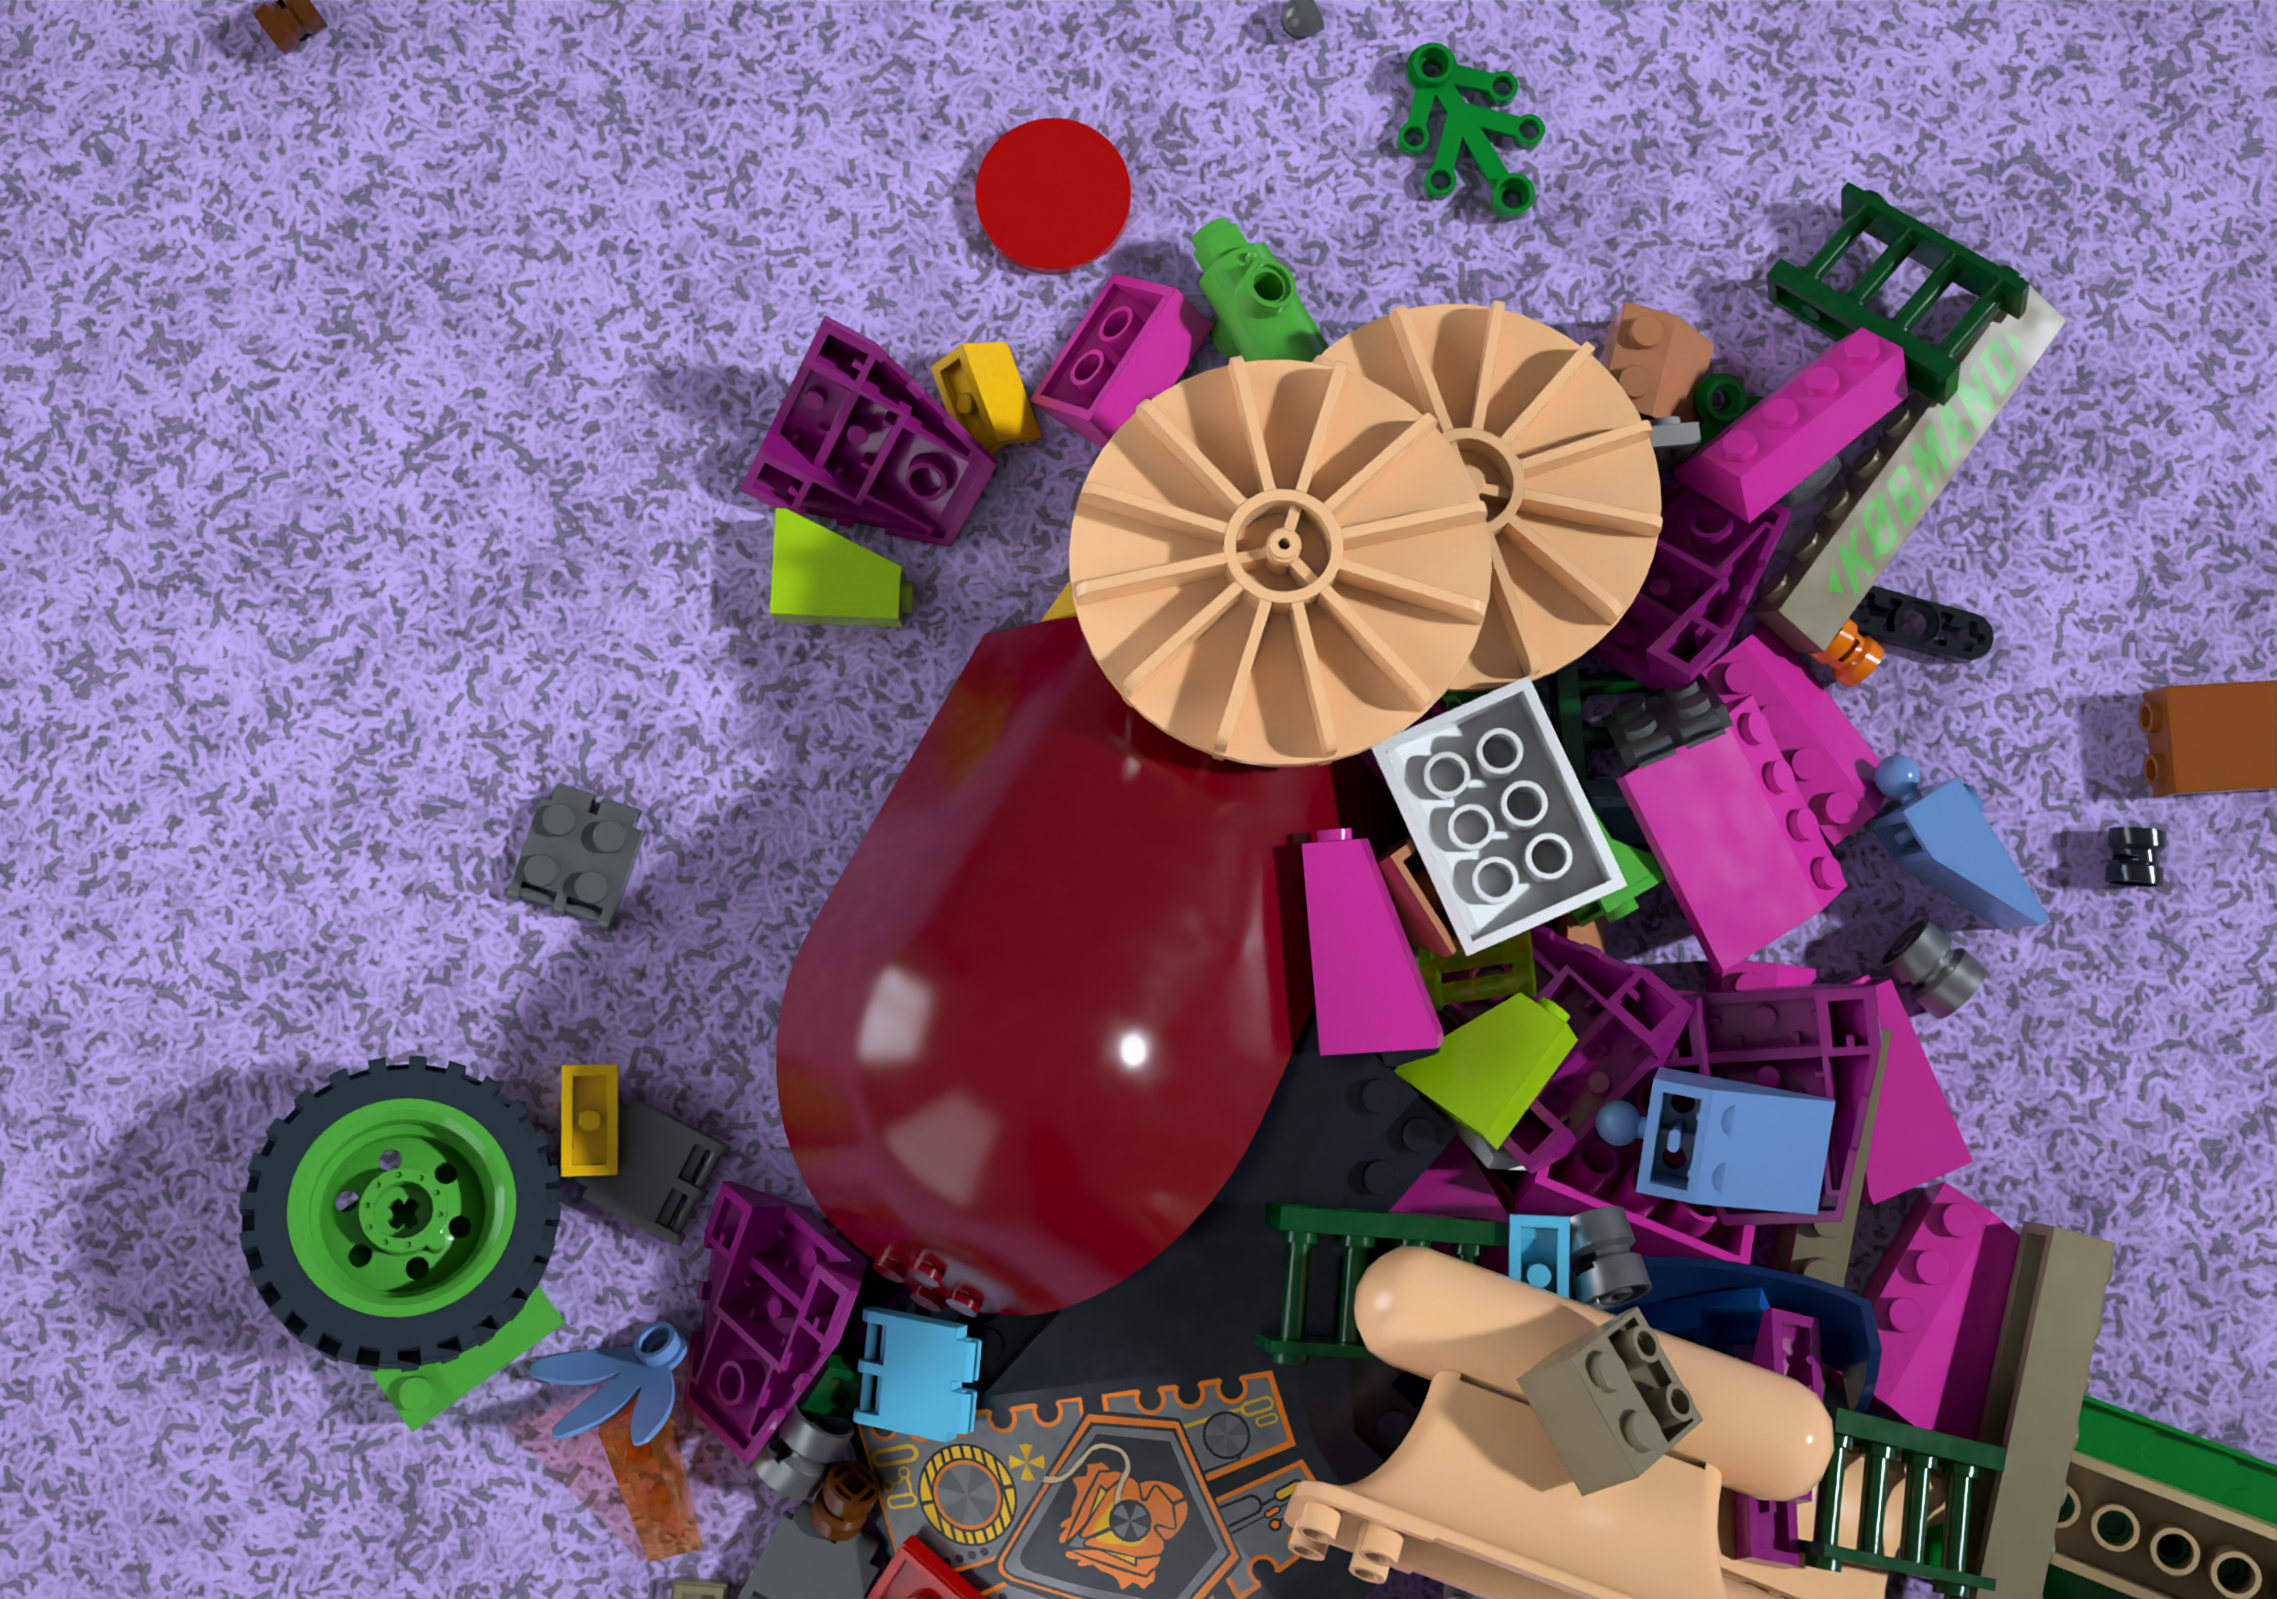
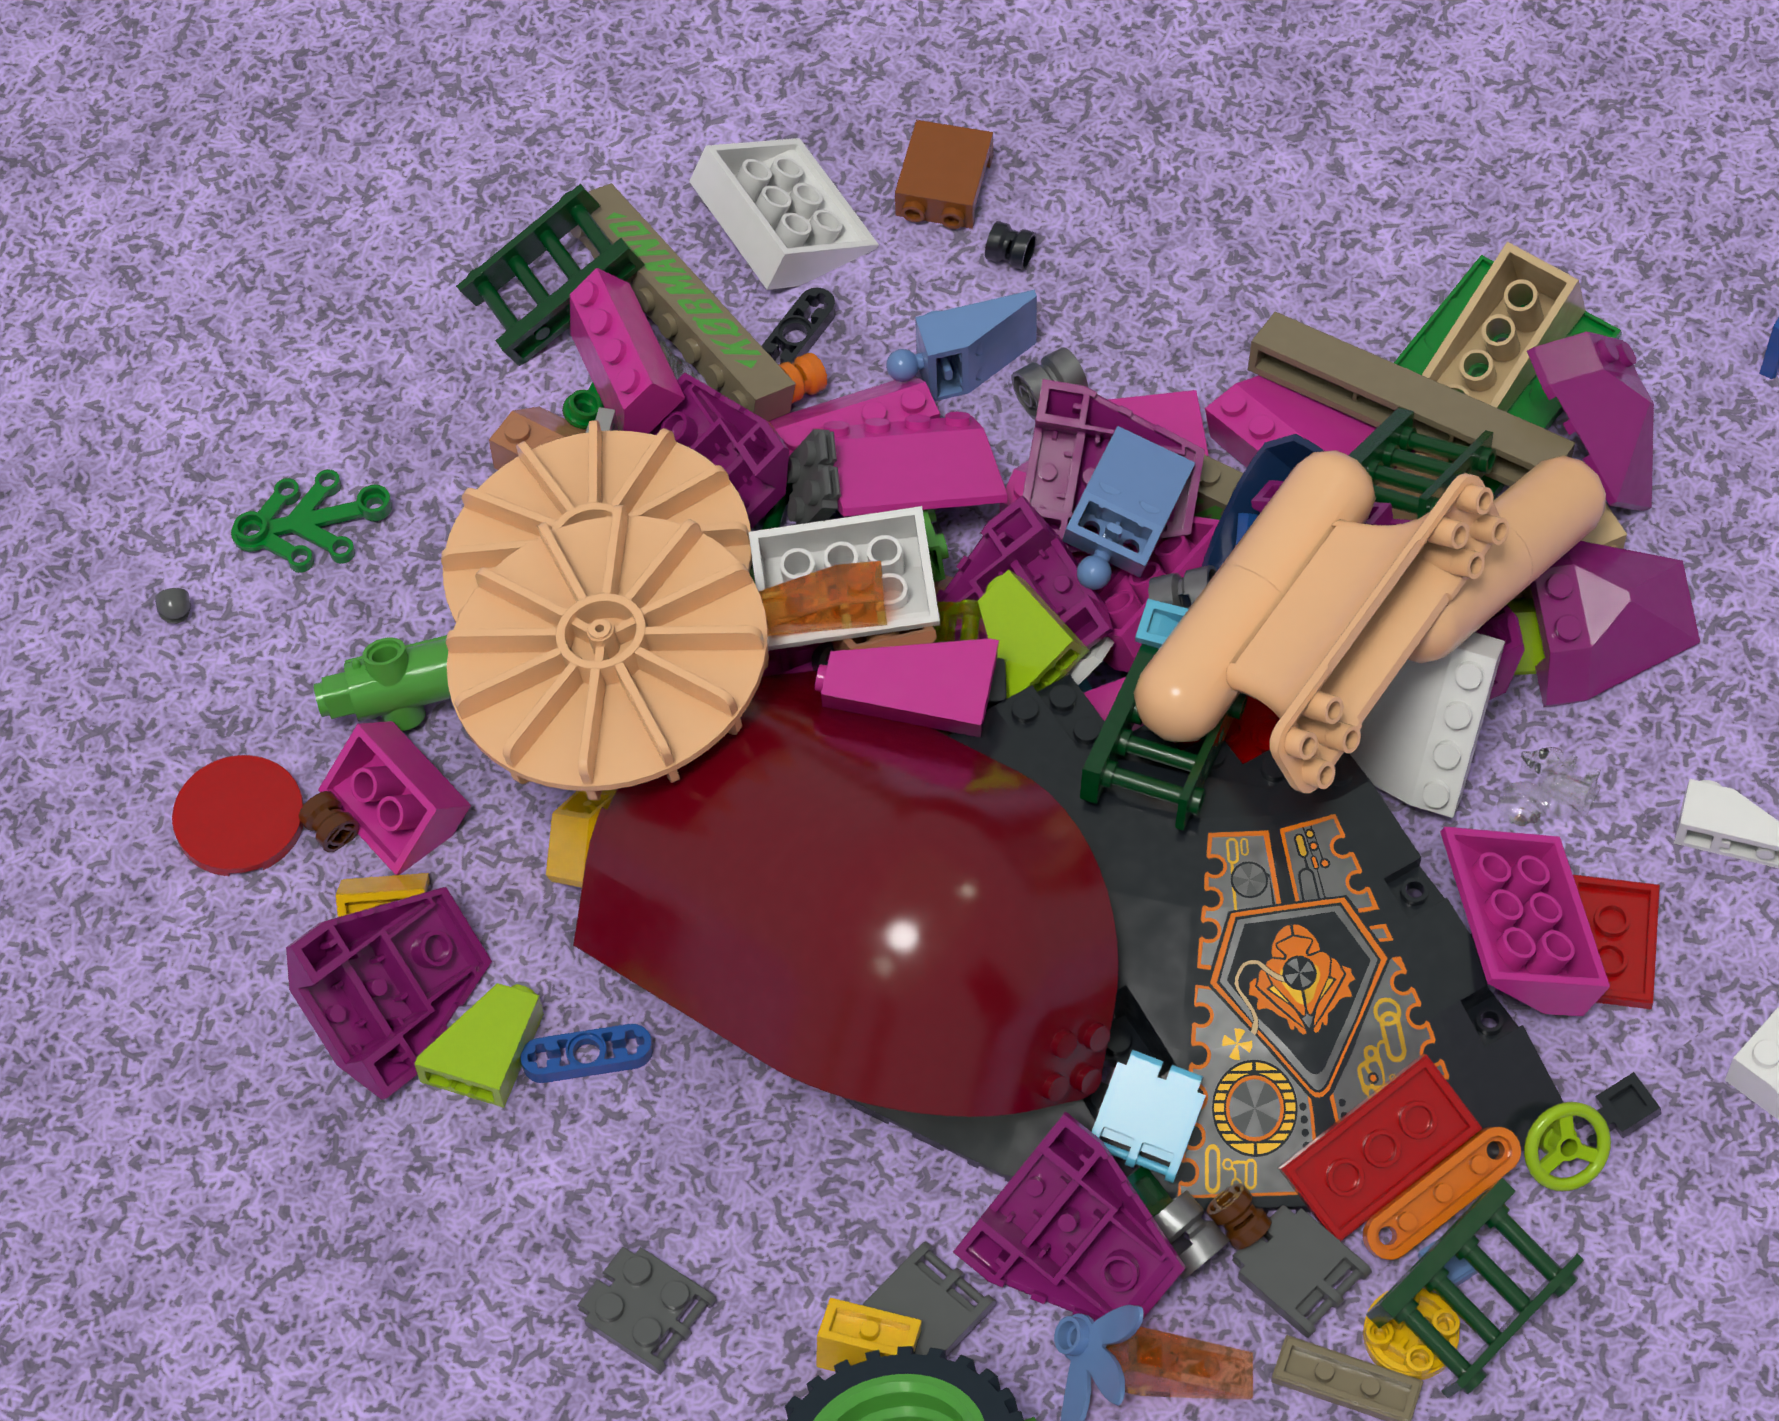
camera: 70 degrees left, 25 degrees down
(858, 651) = (572, 1041): none -> blue beam
(1067, 300) = (332, 825): none -> reddish brown wheel
(1443, 803) = (828, 600): none -> clear orange slope
(1610, 1402) = (1270, 559): dark tan slope -> none
(2100, 546) = (780, 210): none -> white slope

